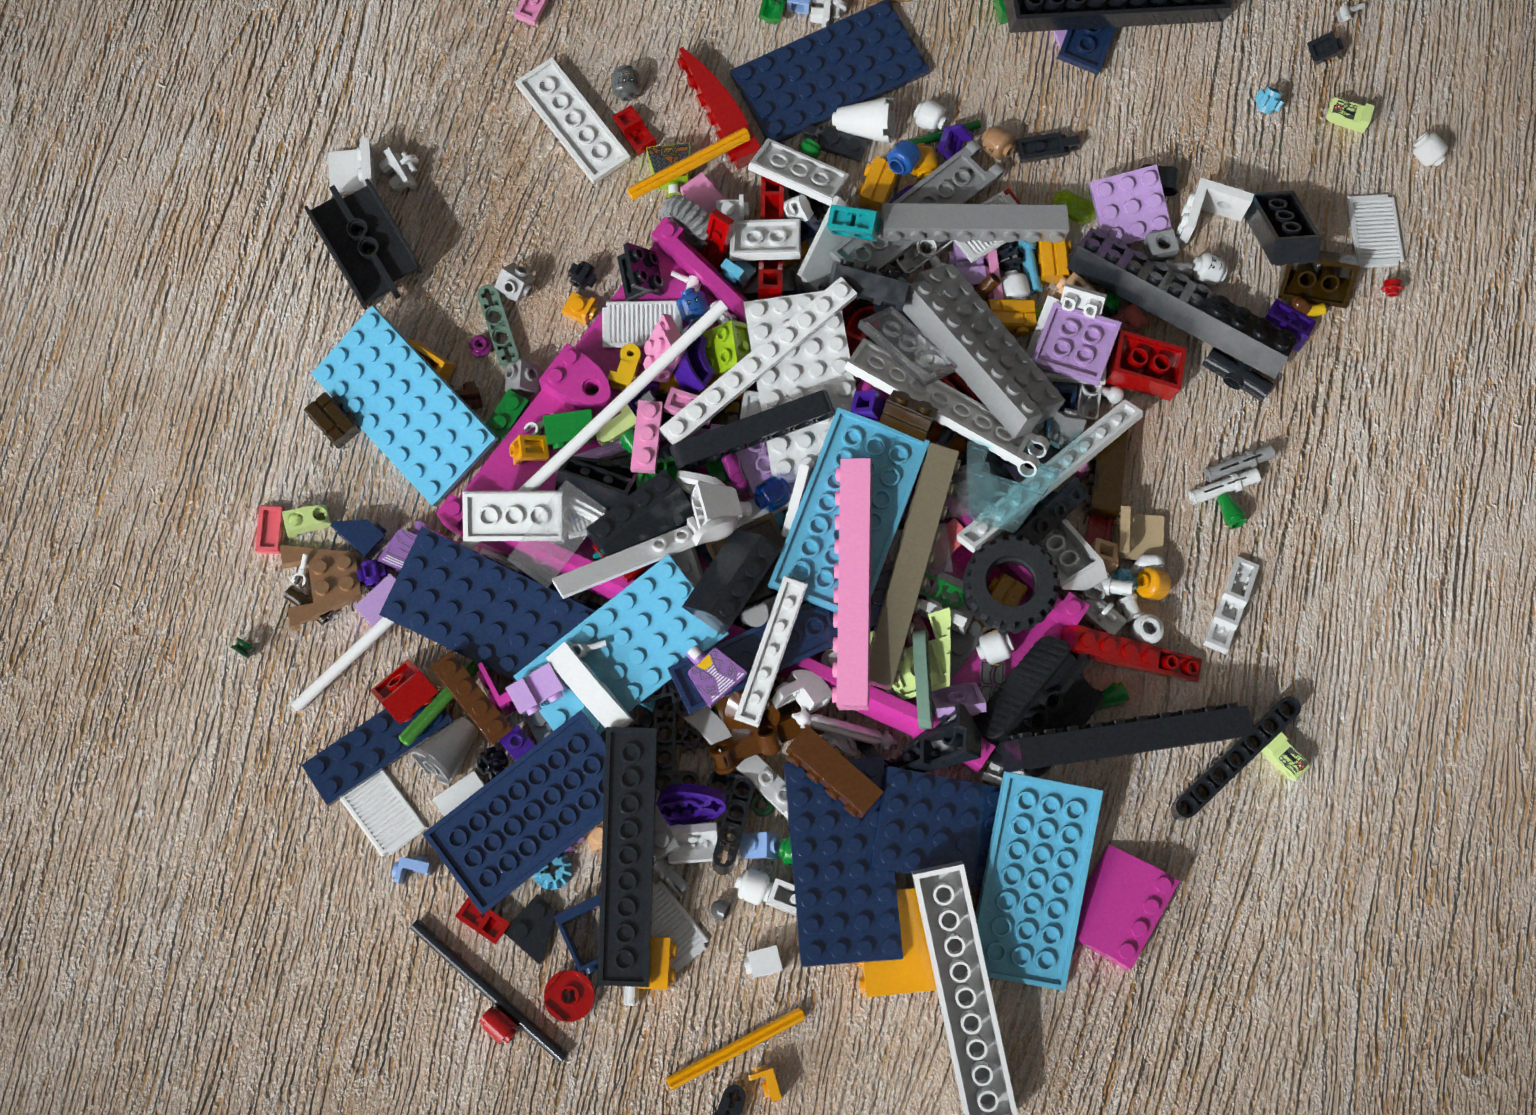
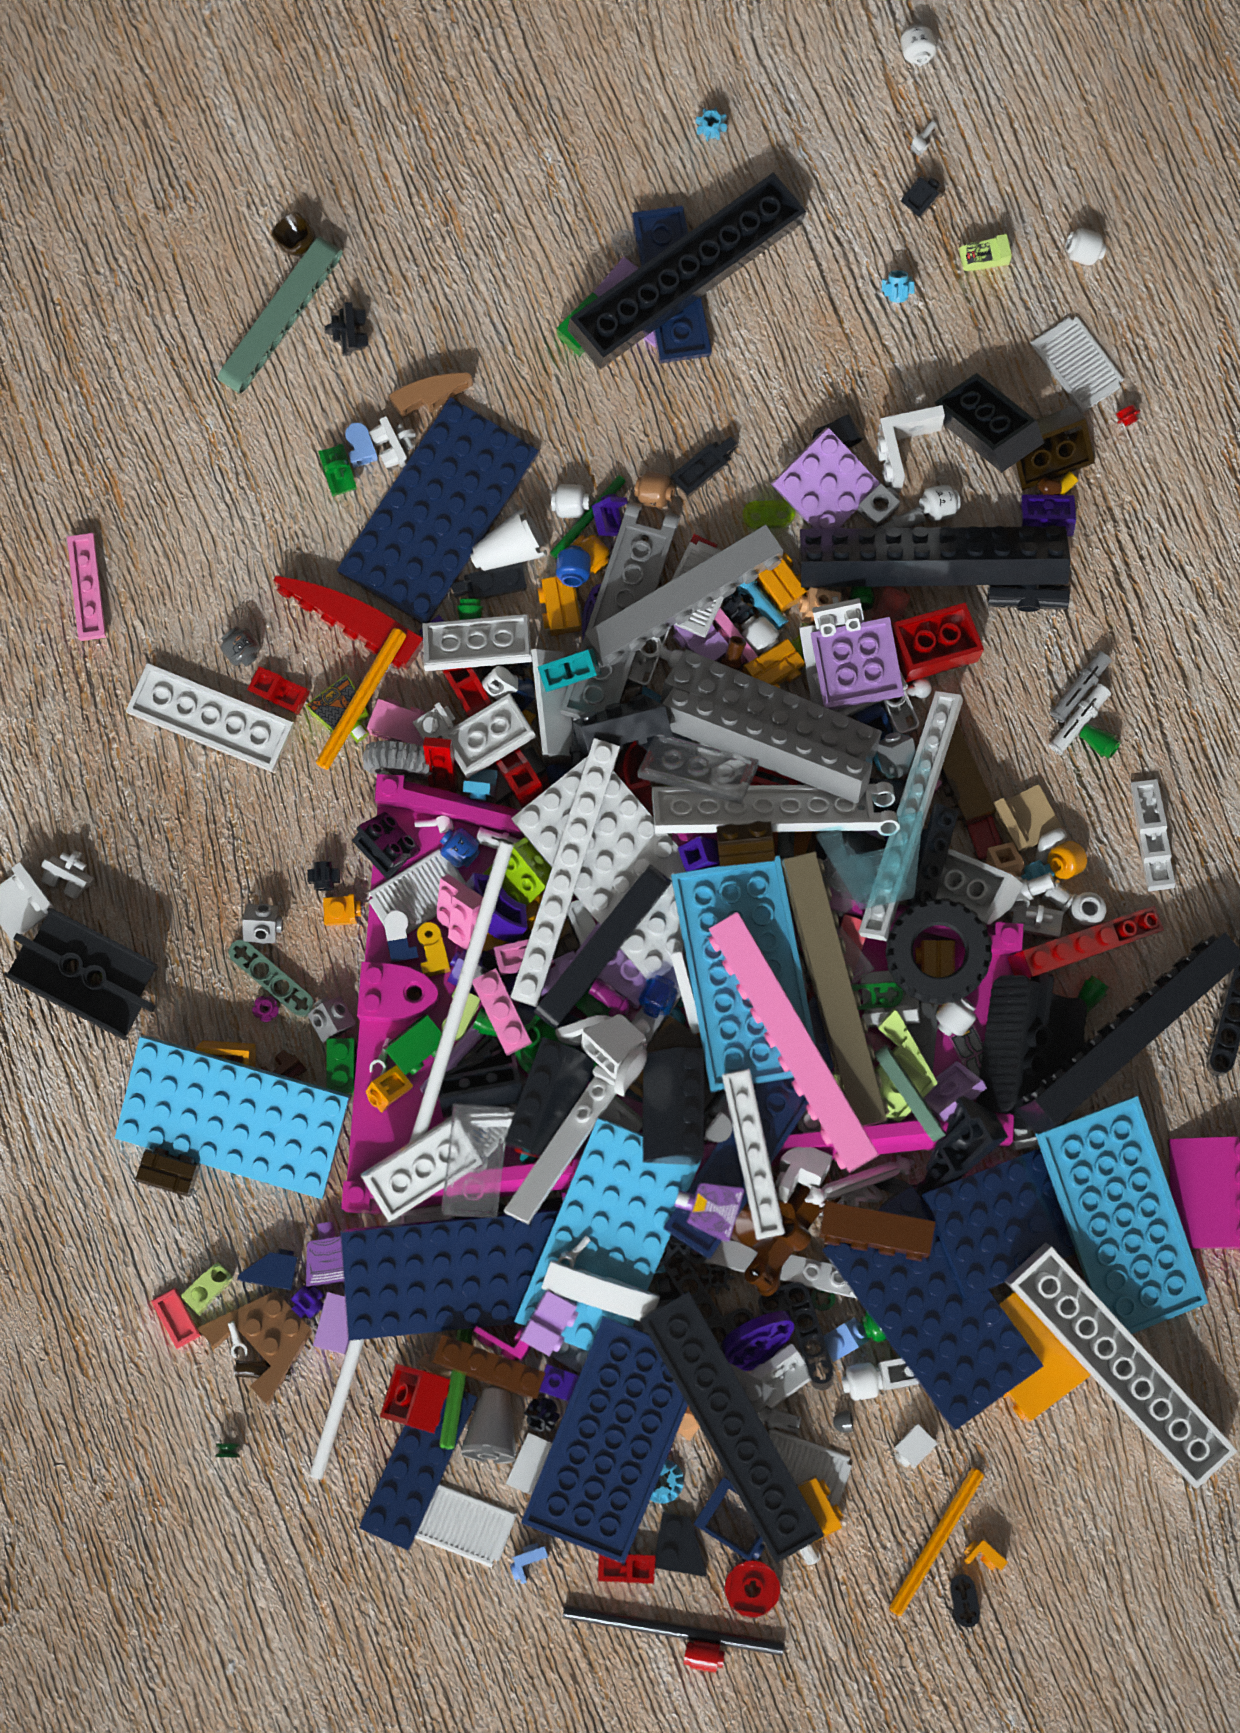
camera: 25 degrees left, 5 degrees up
(608, 335) = (395, 929): none -> leg

